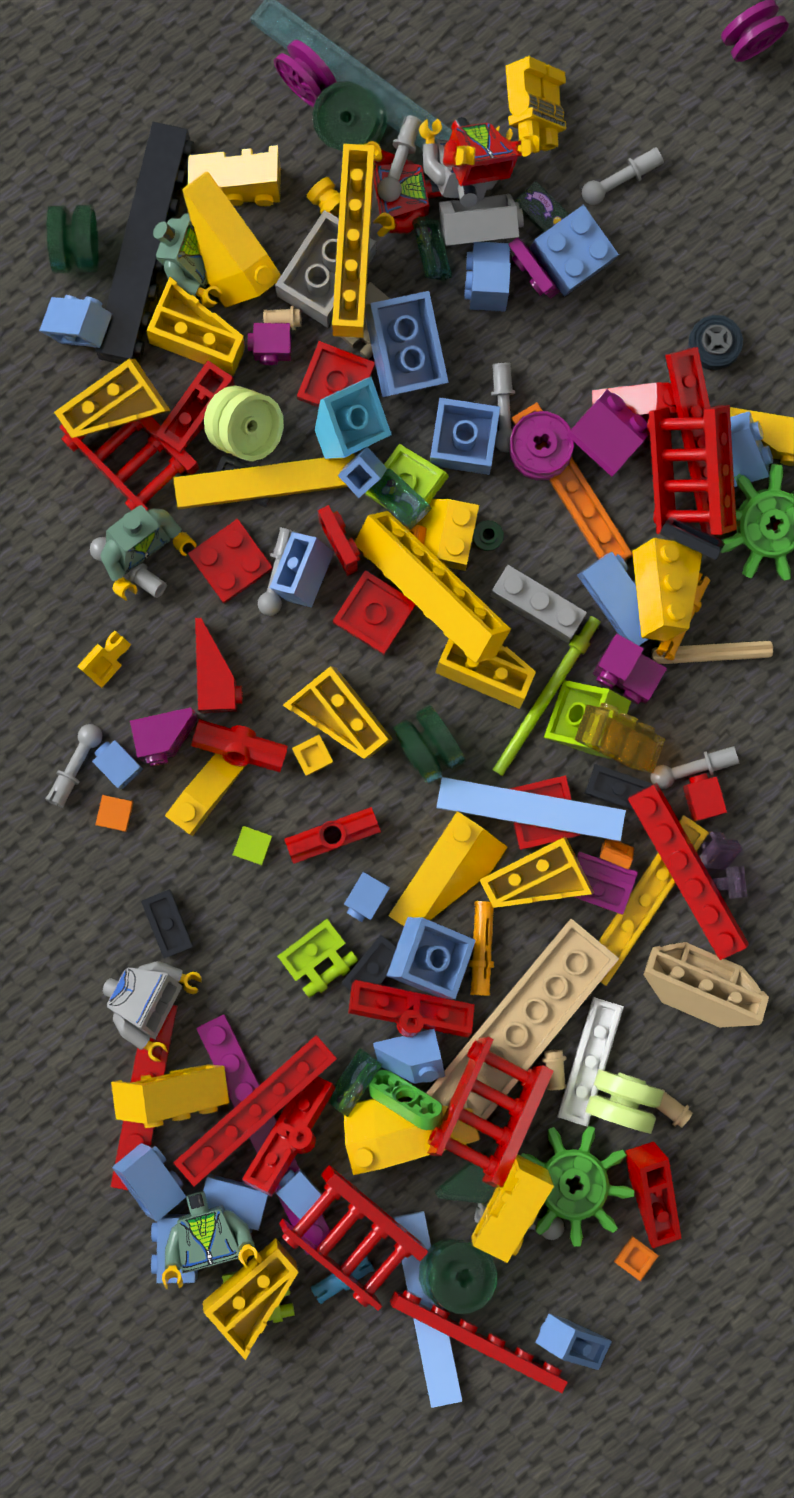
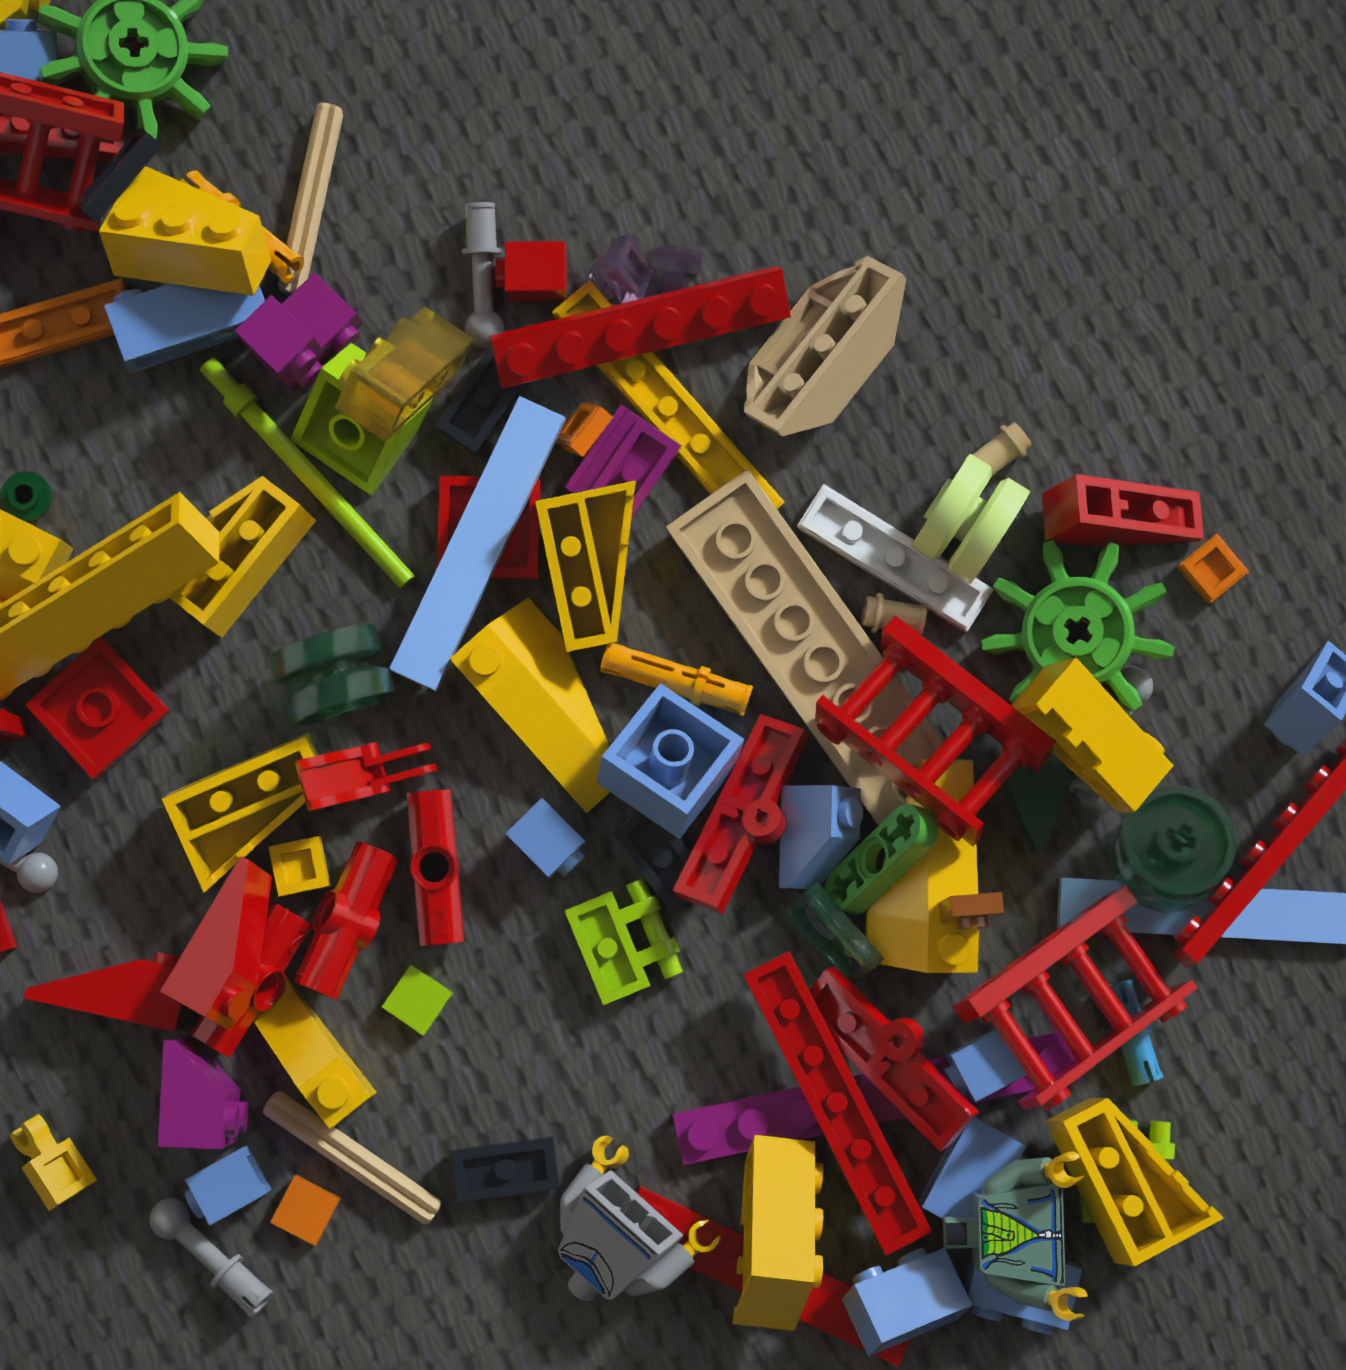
camera: 75 degrees left, 0 degrees up
(151, 832) = (352, 1157): none -> tan axle
(248, 727) = (225, 952): none -> red slope
(288, 791) = (346, 920): none -> red piece
(374, 772) = (353, 774): none -> red arm
(388, 1161) = (971, 910): none -> dark orange plate
(537, 604) = (156, 446): light grey brick -> none

